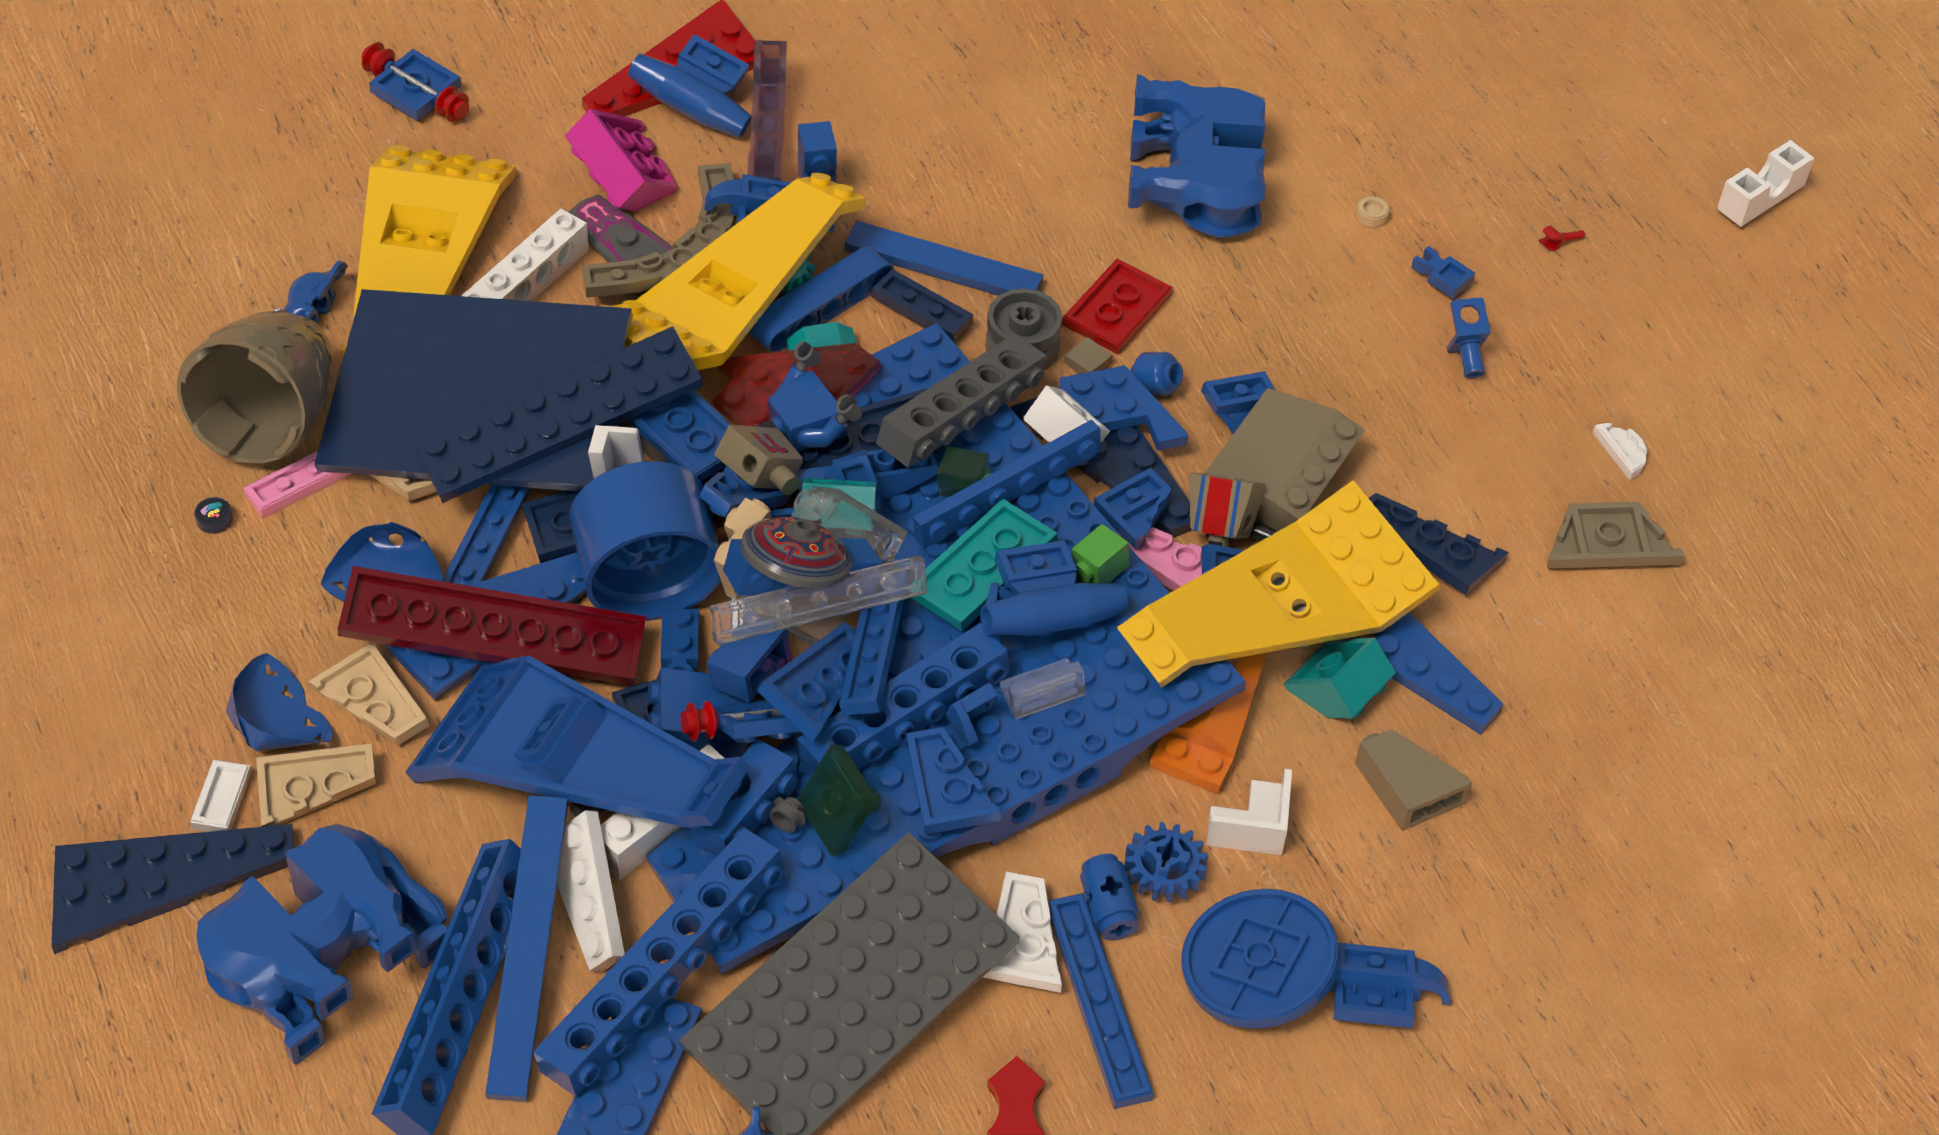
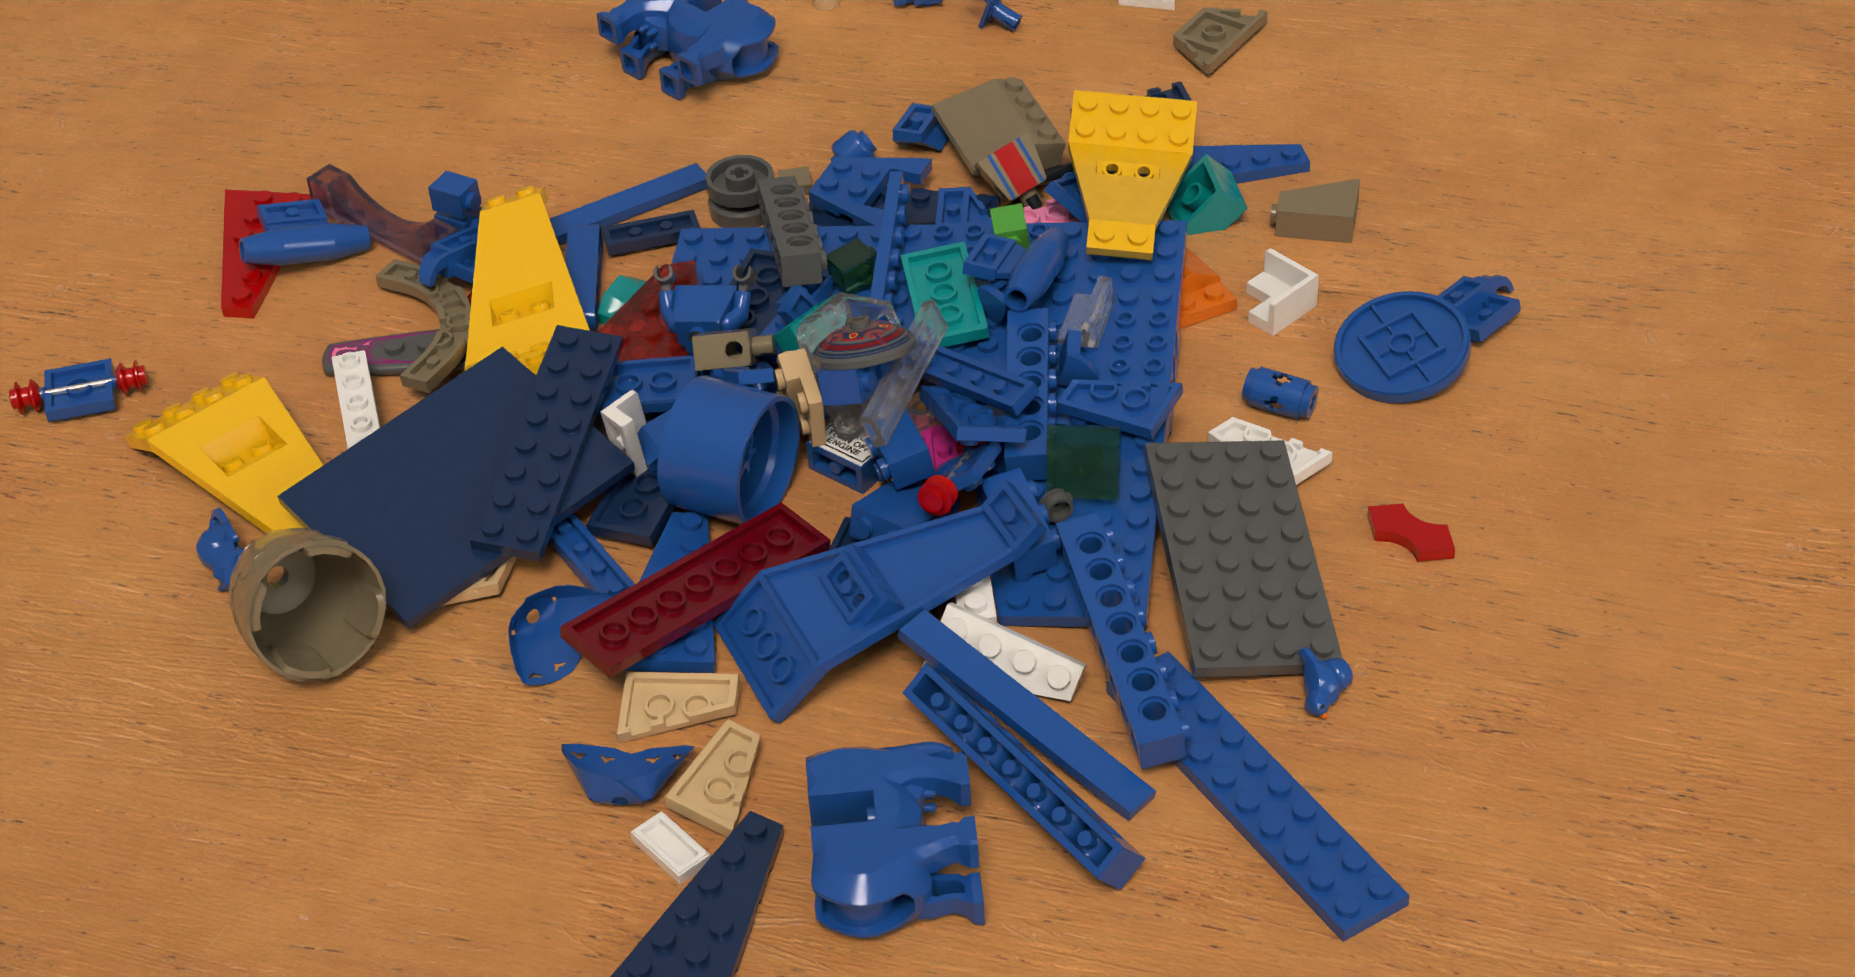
camera: 45 degrees left, 10 degrees down
(213, 515) = (373, 718): tile -> none
(288, 485) = (396, 657): bright pink tile -> none
(621, 159) = (319, 310): dark pink wedge -> none
(680, 639) = (817, 503): blue plate -> none
(1058, 413) = (855, 203): white panel -> none
(1099, 1001) = (1364, 448): blue tile -> none
(1117, 306) = (766, 138): red tile -> none
(1181, 872) = (1277, 351): blue gear -> none

